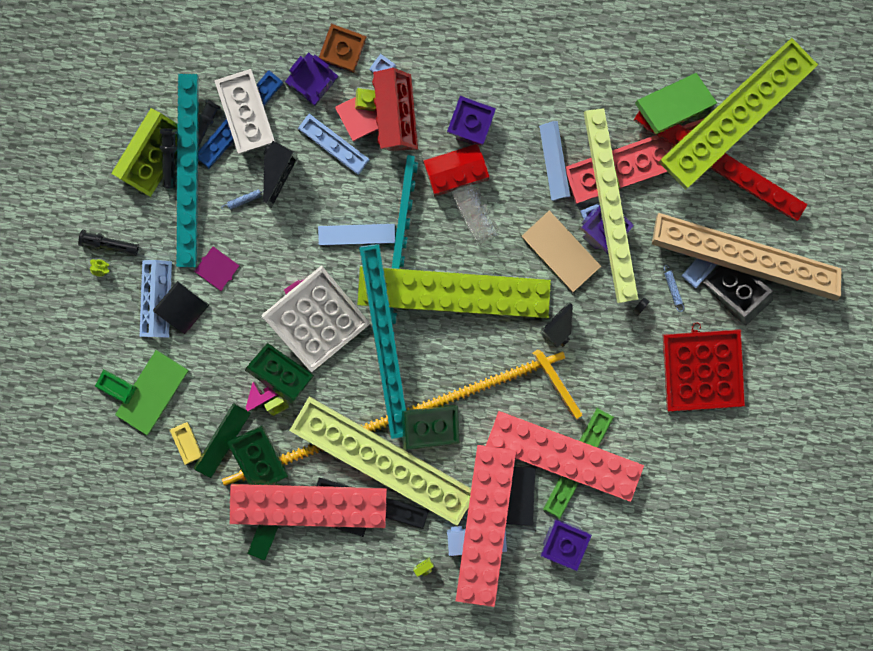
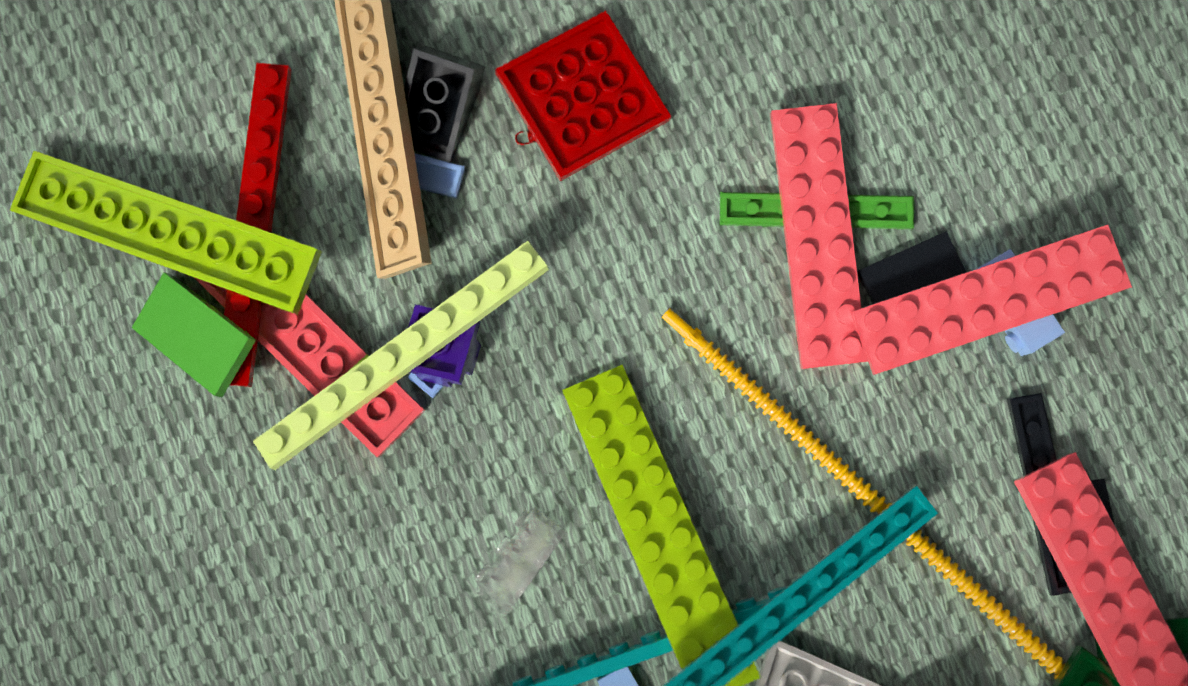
camera: 120 degrees left, 5 degrees down
(382, 460) = (977, 514): yellowish green plate -> none
(424, 567) = (1100, 362): lime plate -> none
(430, 427) = (886, 461): dark green tile -> none
(456, 170) = (463, 626): red slope -> none
(471, 121) = (374, 642): dark purple panel -> none
(554, 160) = (373, 477): light blue tile -> none
(557, 383) = (717, 300): yellow tile -> none
(559, 327) = (628, 340): black slope -> none
(561, 251) = (509, 396): tan tile -> none
(565, 544) = (950, 167): dark purple panel -> none
(641, 306) = (534, 233): black tile -> none
(673, 288) = (481, 199): light blue piece -> none

